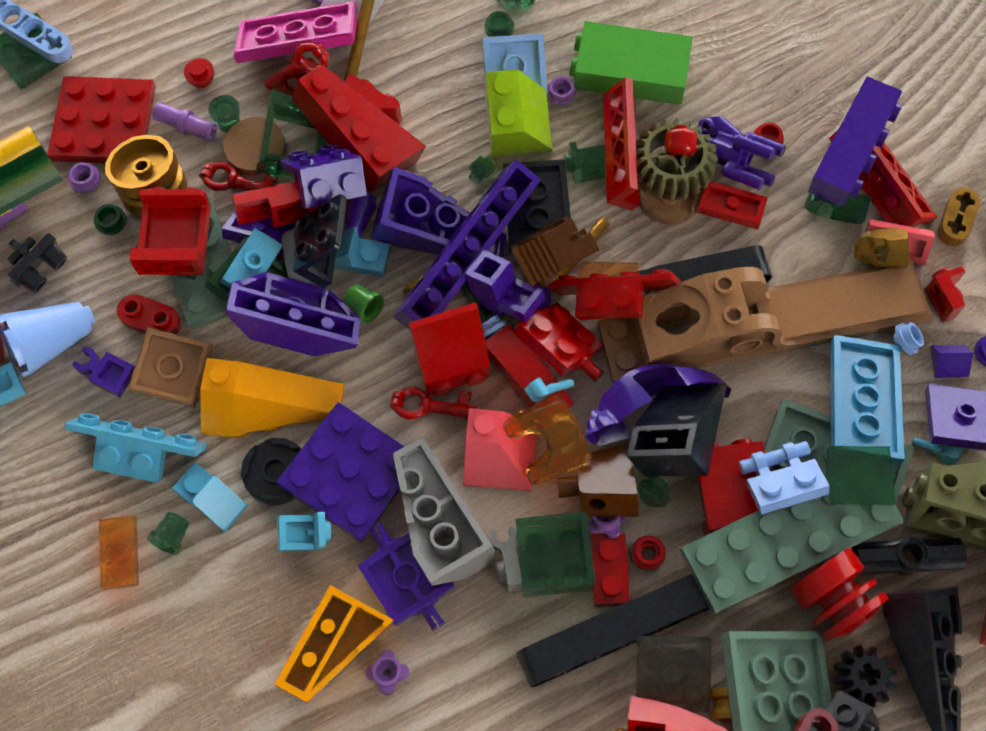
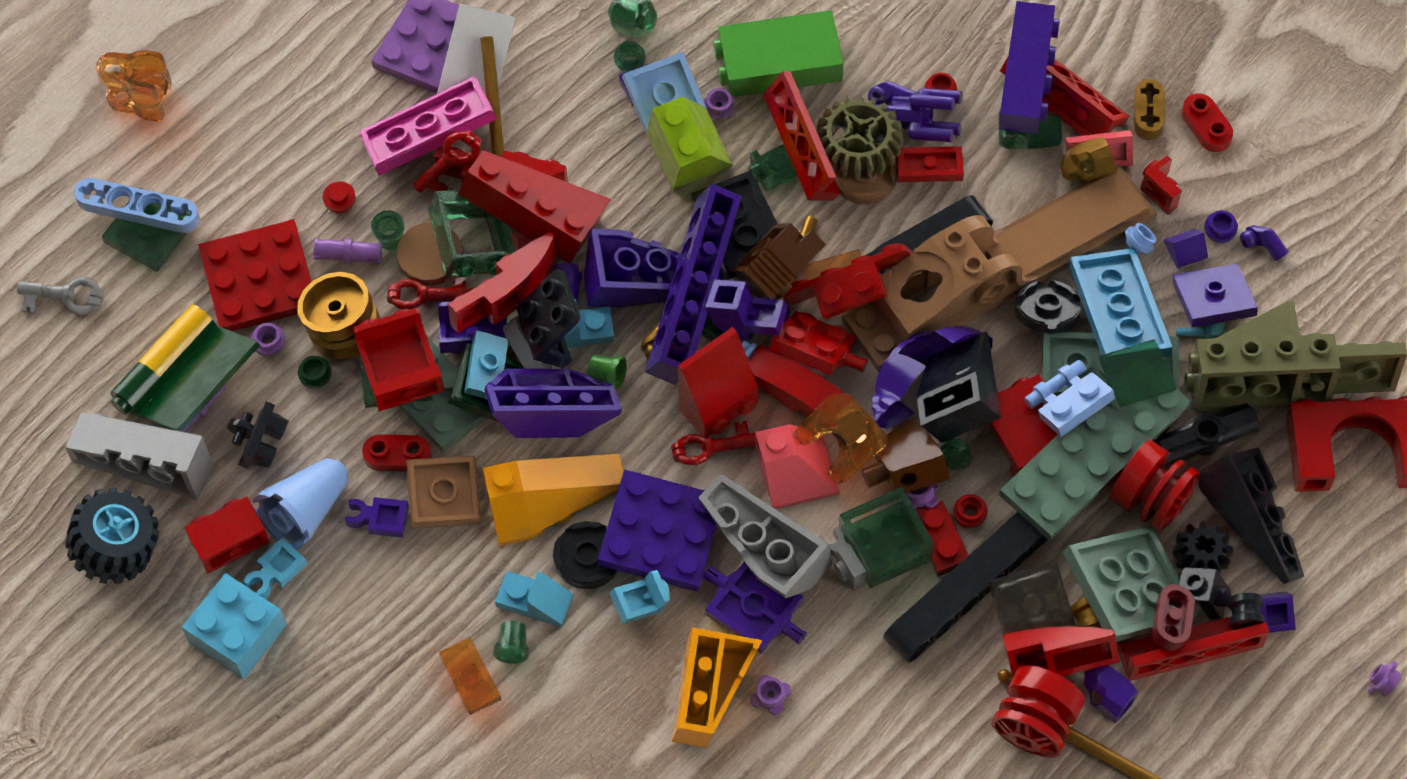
camera: 20 degrees left, 5 degrees down
(133, 450) = (439, 581): medium azure bracket -> none
(326, 174) = (529, 255): bracket -> none
(481, 169) = (671, 205): clear green plate -> none
(538, 390) = (814, 394): medium azure hand -> none
(681, 141) = (860, 118): red piece -> none
(795, 376) = (1048, 306): none -> black tile

